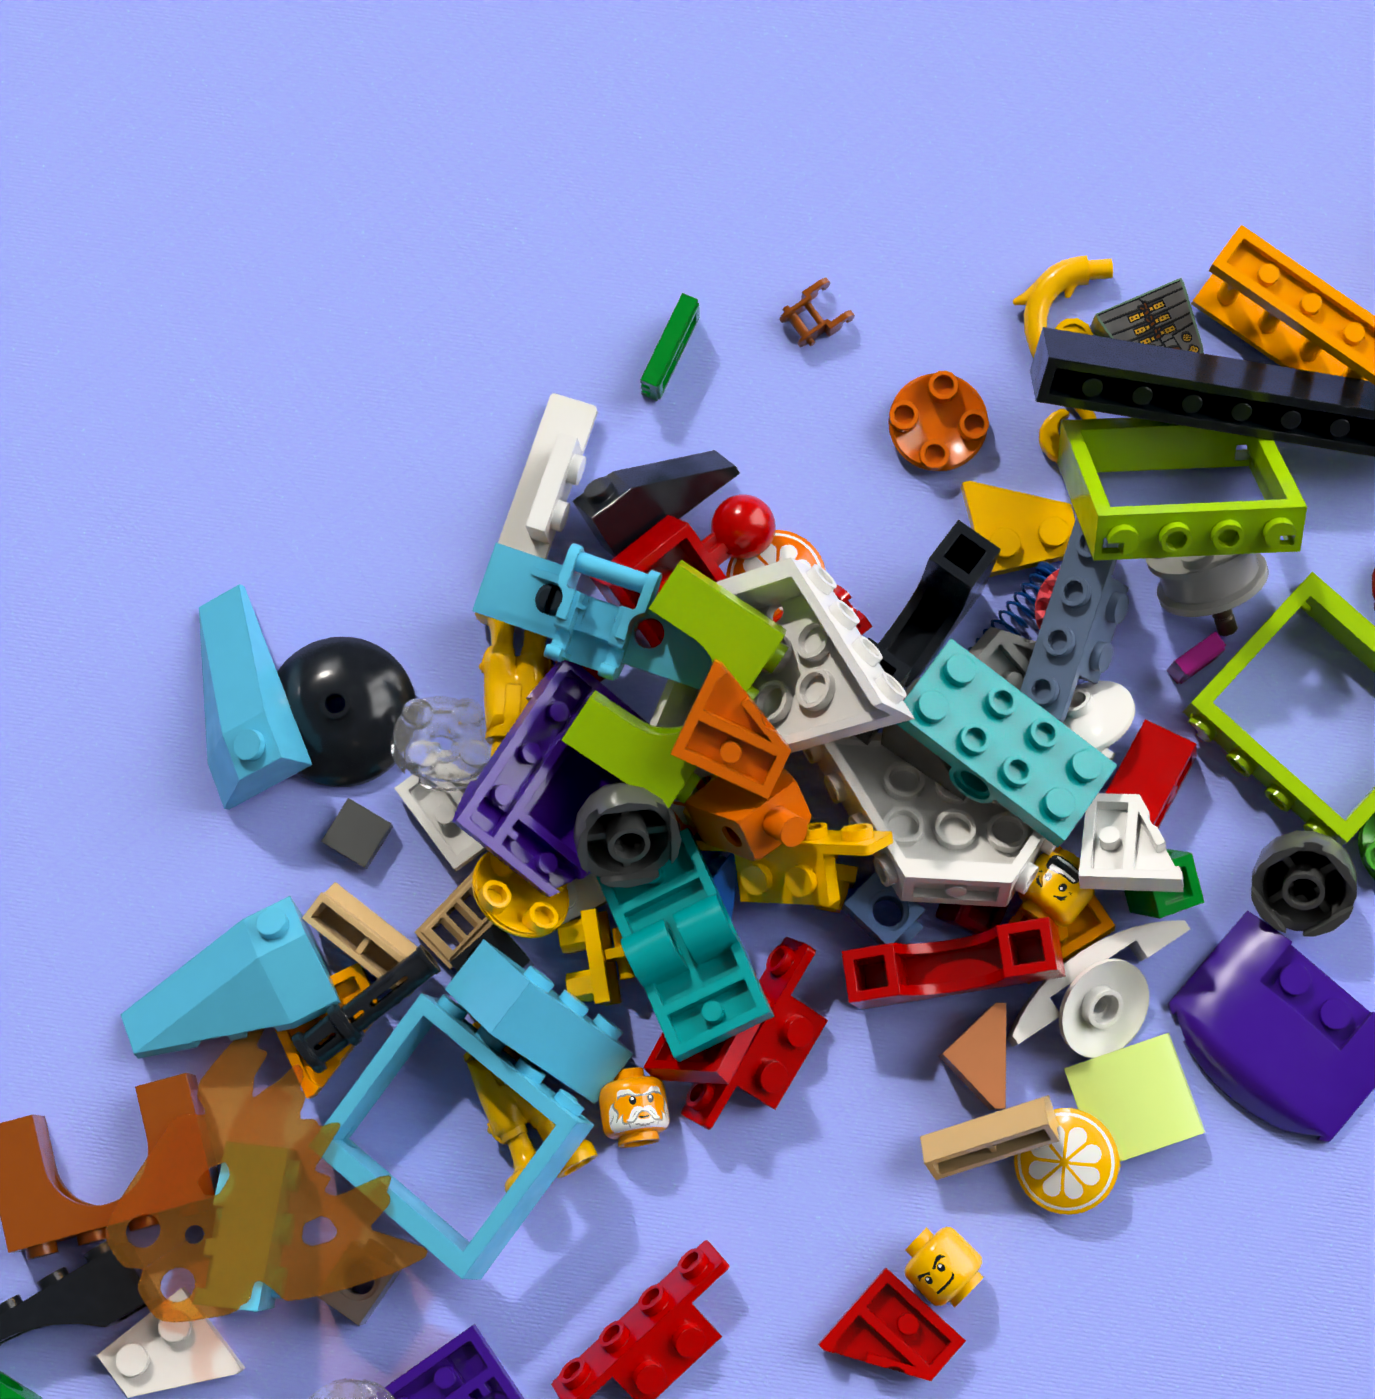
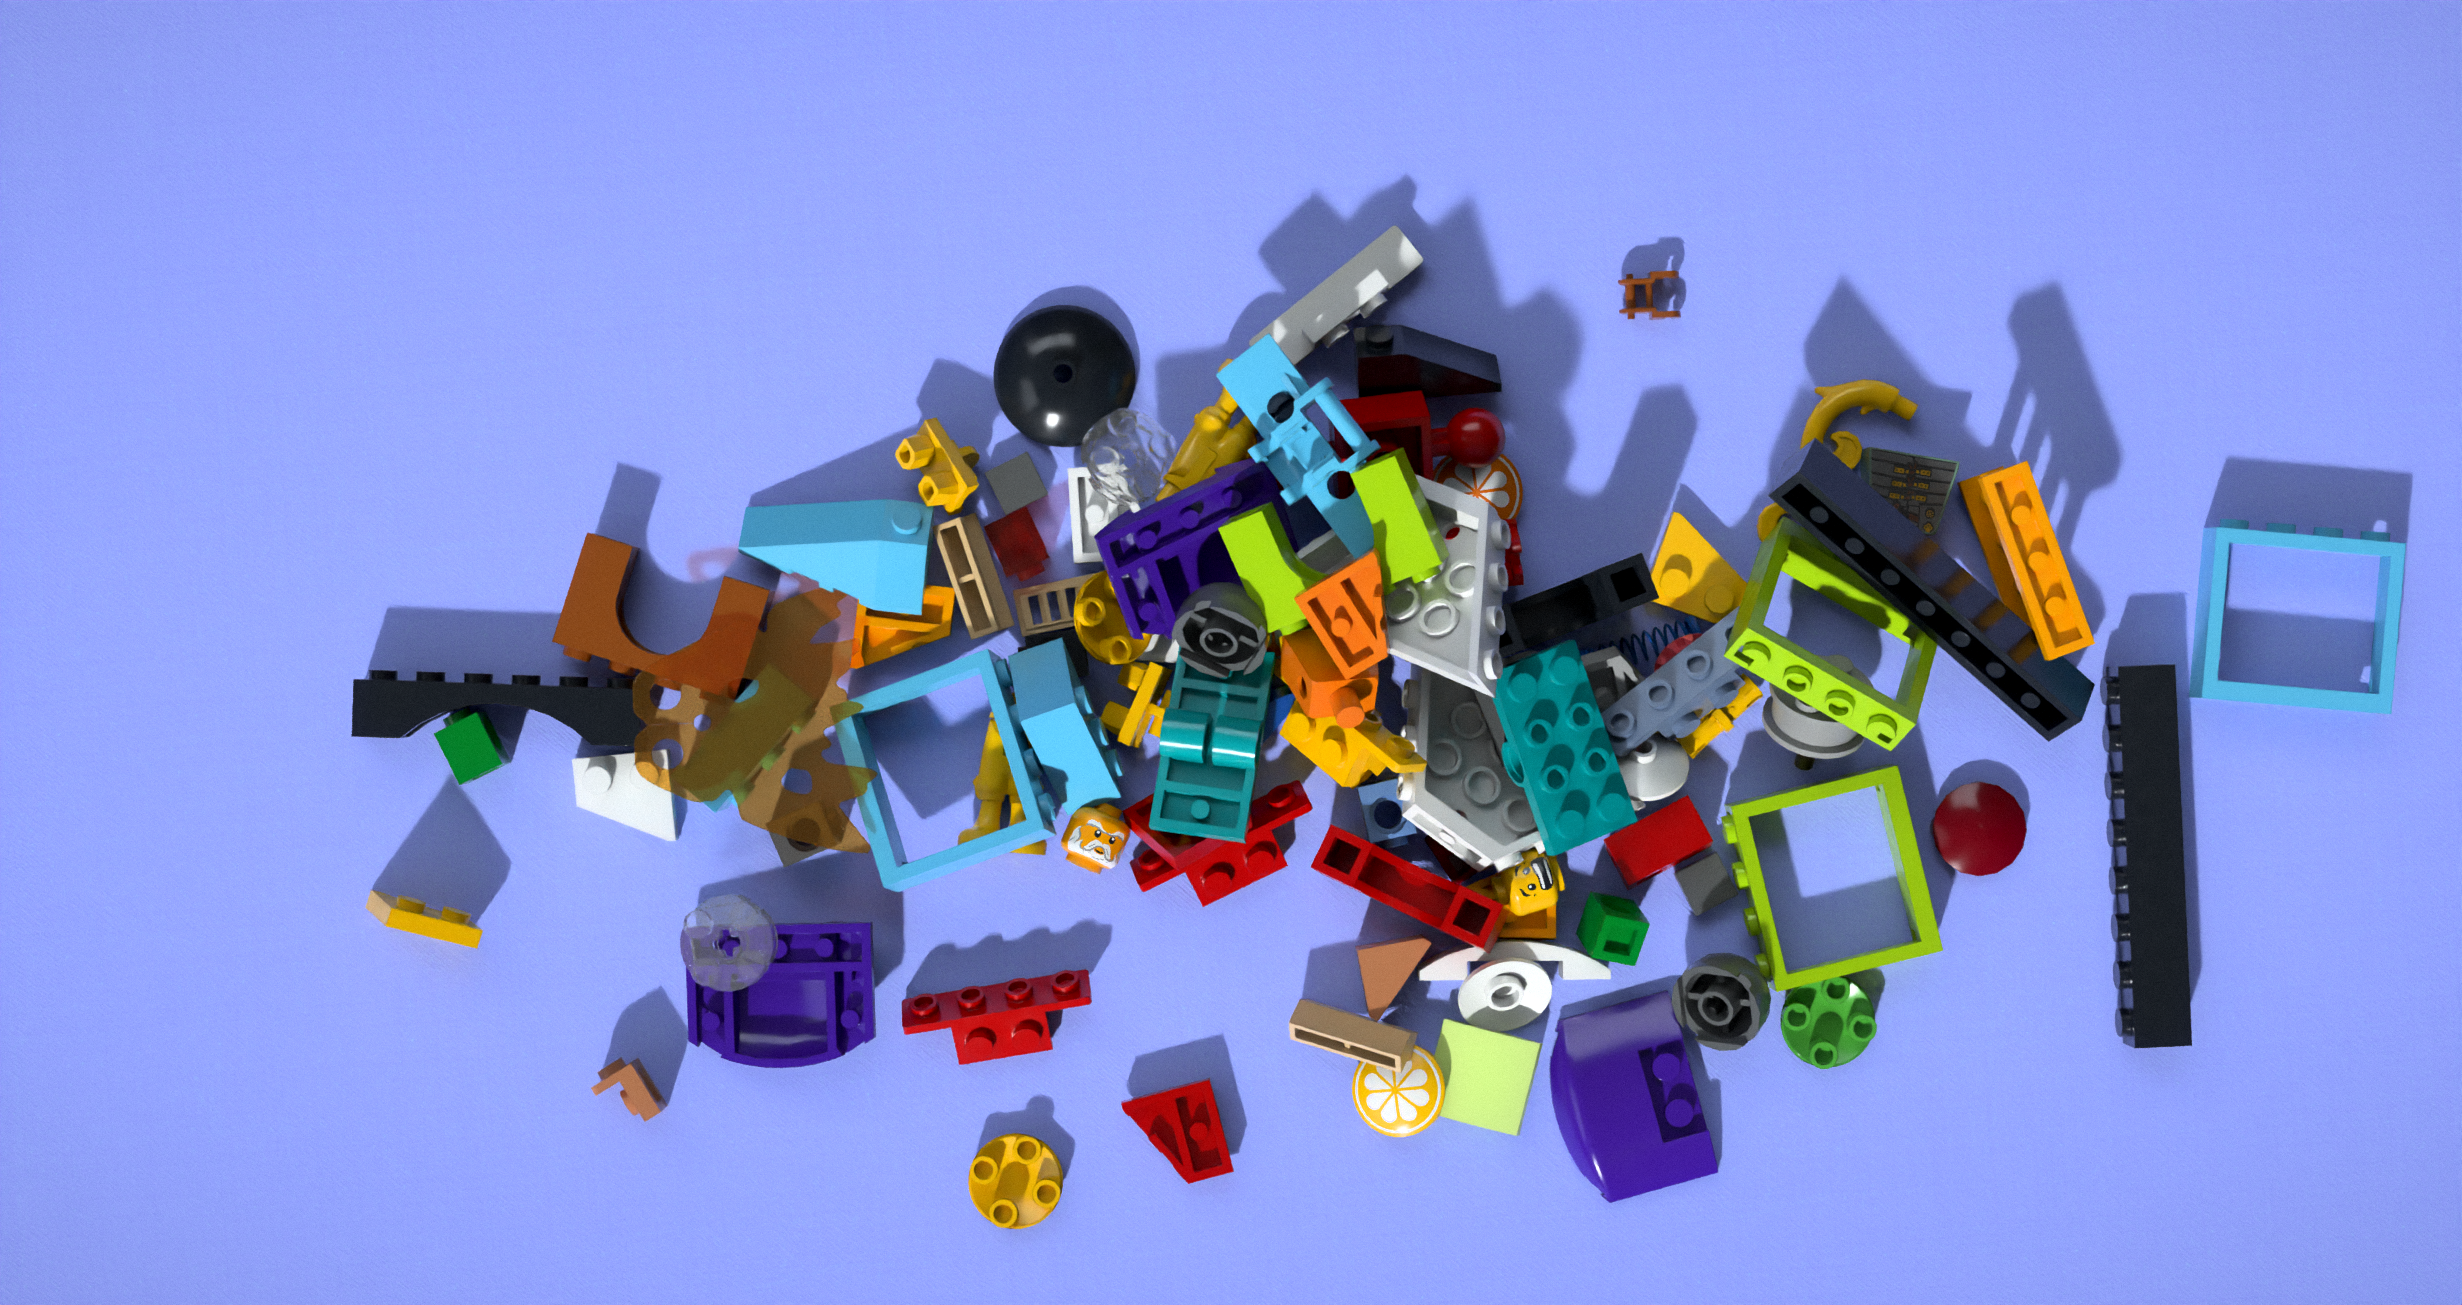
camera: 30 degrees right, 10 degrees up
(247, 713) = (989, 331): medium azure wedge -> none
(280, 858) = (945, 466): none -> yellow hips
(340, 1019) = (916, 632): black pin -> none
(393, 887) = (1018, 545): none -> clear red bracket
(670, 347) = (1514, 249): green tile -> none
(938, 421) = (1688, 449): orange dish -> none
(943, 1266) = (1253, 1106): yellow head -> none
(1125, 848) = (1599, 888): white wing -> none
(1127, 636) = (1720, 719): none -> yellow pin
(1196, 658) = (1762, 772): magenta tile -> none
(1215, 791) = (1705, 883): none -> dark grey tile

